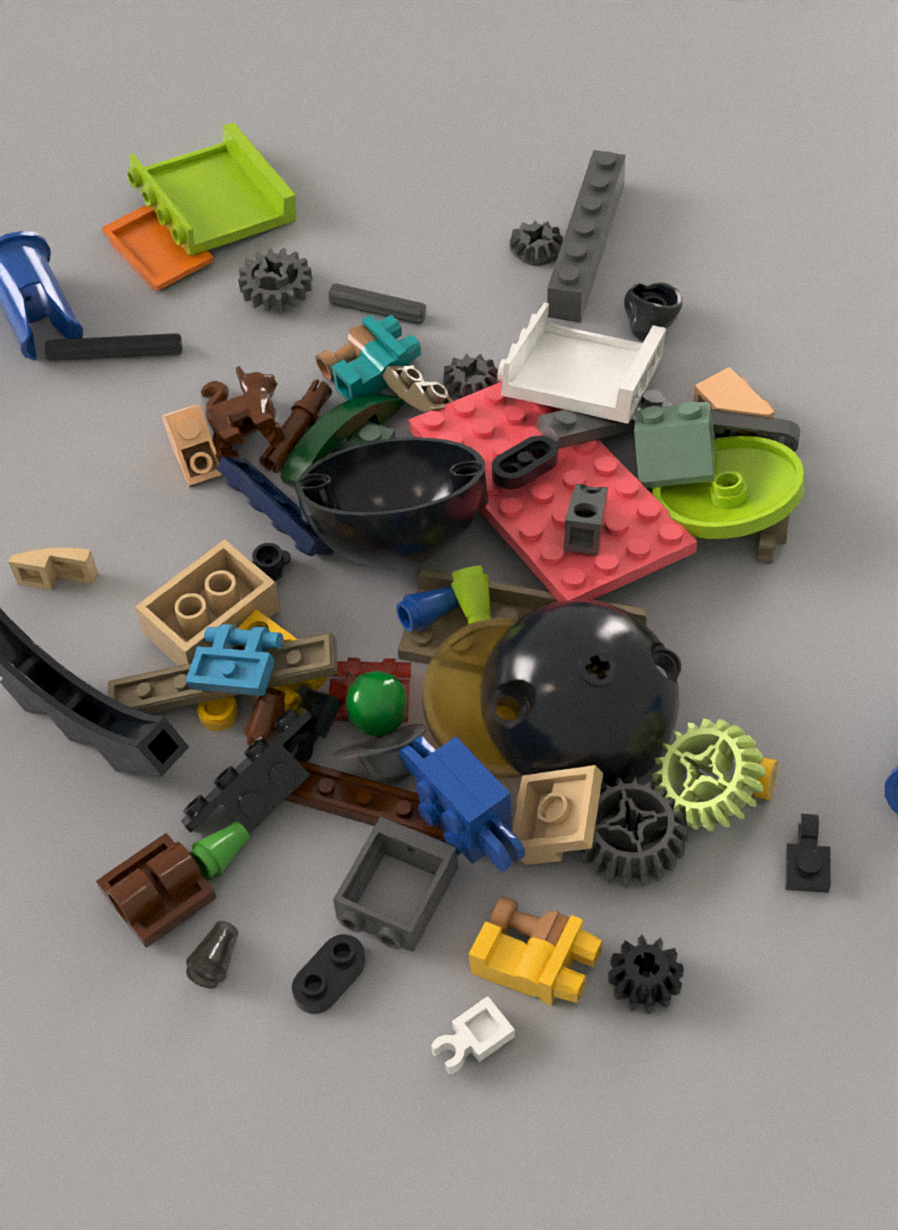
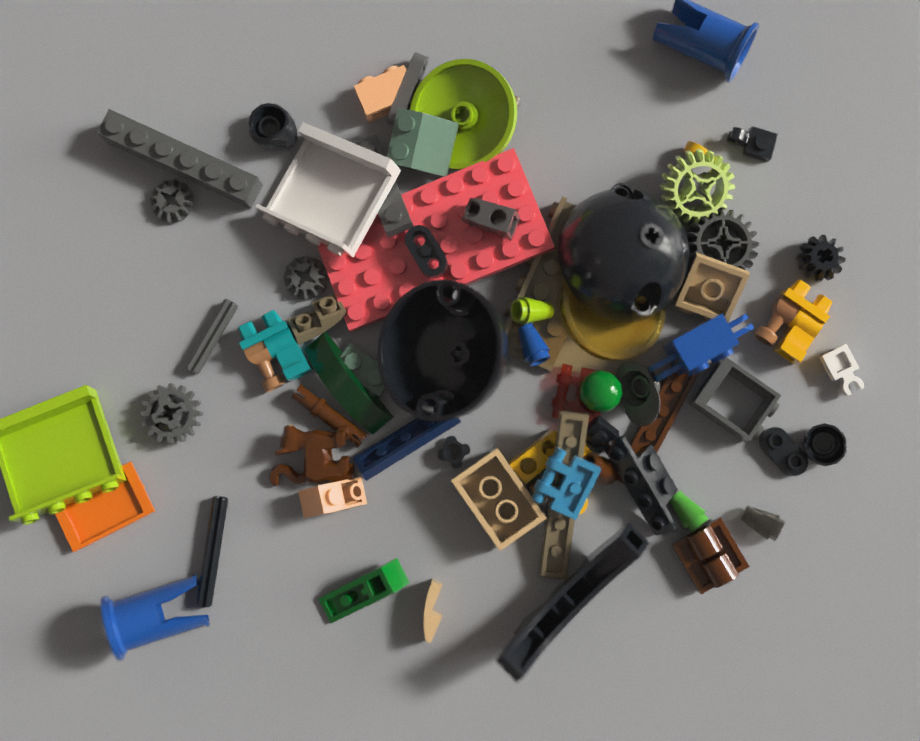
camera: 85 degrees left, 30 degrees up
(78, 496) = (364, 590): none -> green slope
(344, 1020) = (824, 444): none -> black hair

